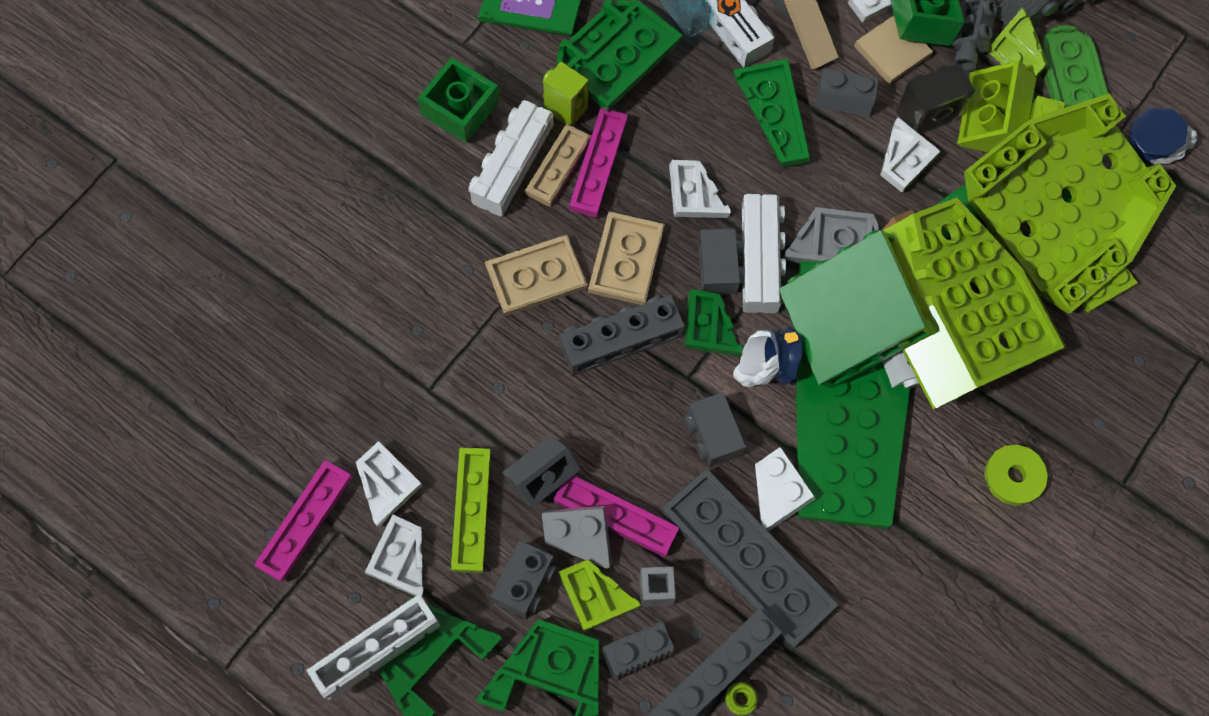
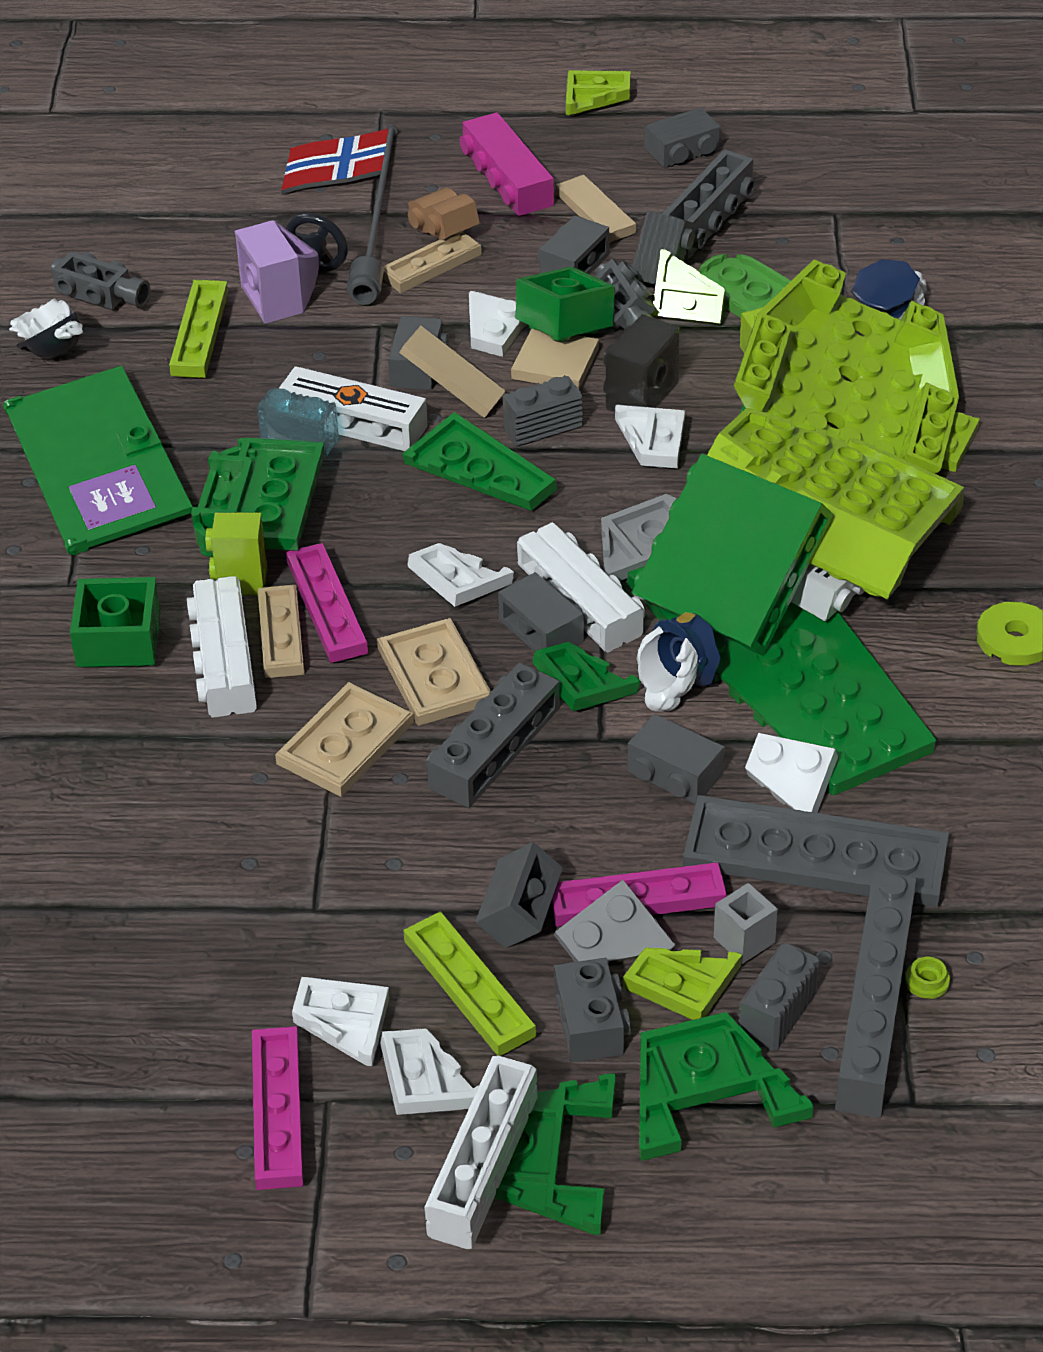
camera: 30 degrees left, 25 degrees down
(998, 105) = (708, 349): lime slope -> none

